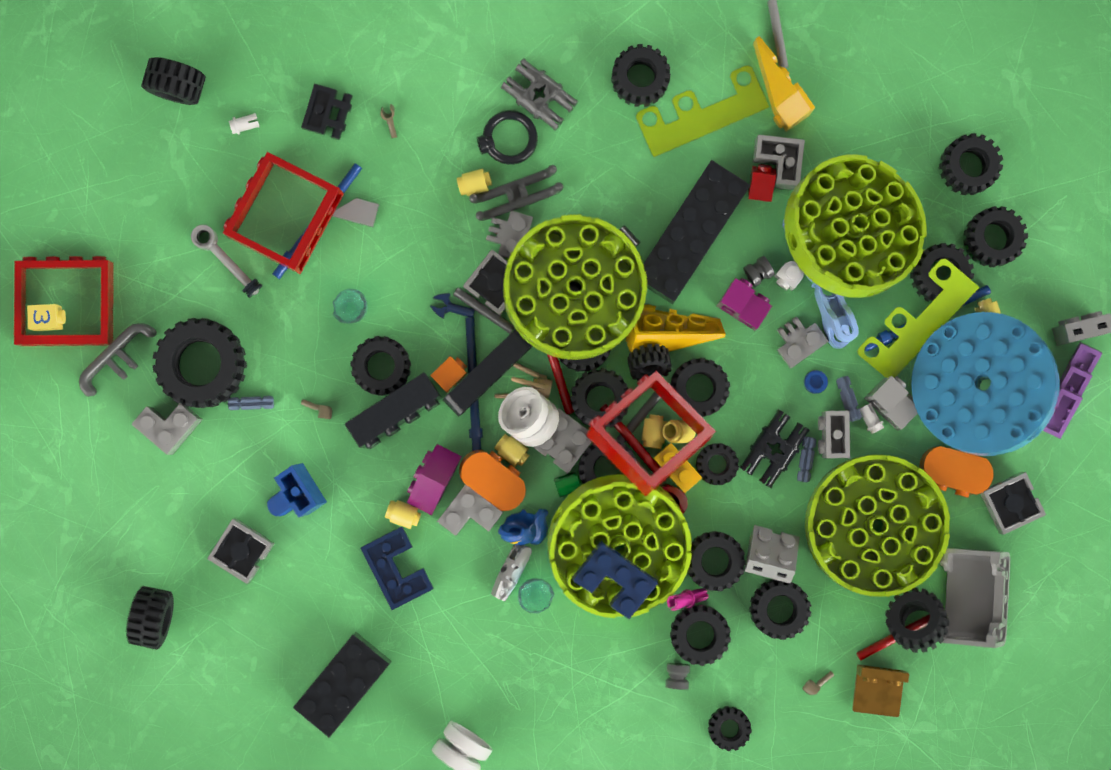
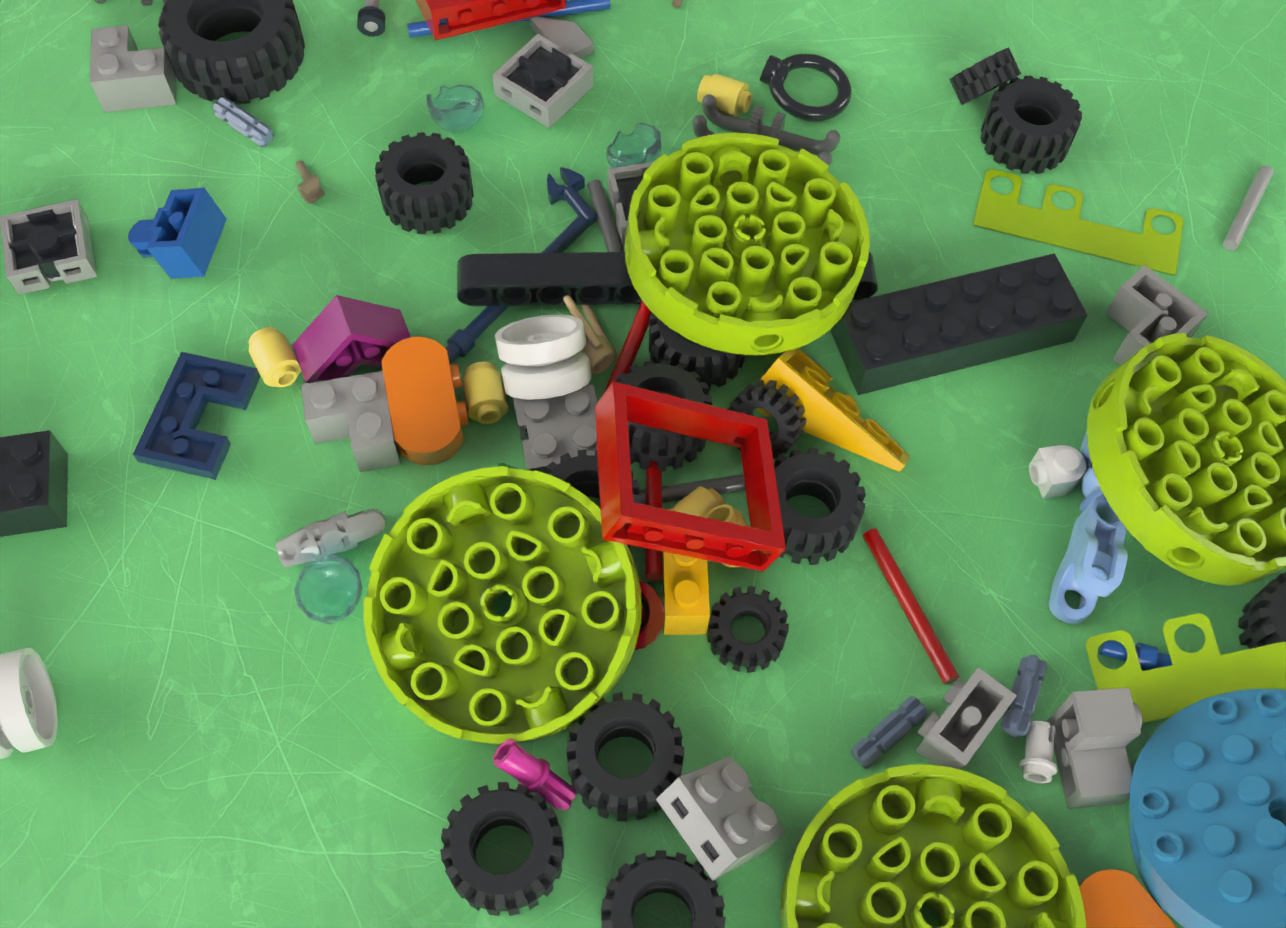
camera: 40 degrees right, 25 degrees down
(378, 253) = (543, 80): none -> piece
(393, 410) = (385, 229): black brick -> none
(449, 373) = (495, 238): orange brick -> none
(461, 258) = (636, 148): none -> clear light blue hair
(525, 528) = (393, 489): blue hair -> none
(539, 106) = (885, 69): dark grey pin -> none
(598, 65) = (985, 76): none -> black tyre
(607, 562) = (478, 662): dark blue plate -> none
(677, 676) = (412, 886): dark grey wheel -> none
(744, 305) = (957, 447): magenta brick -> none
(759, 271) = (1015, 433): dark grey wheel -> none
(761, 450) = (844, 694): black pin -> none
(762, 183) = (1102, 332): red brick -> none
(773, 394) = (910, 606): none -> red bar
(787, 100) = (1218, 258): yellow wedge -> none
(800, 342) = (1005, 568): light grey hinge -> none
(815, 382) = (988, 637): blue tile -> none

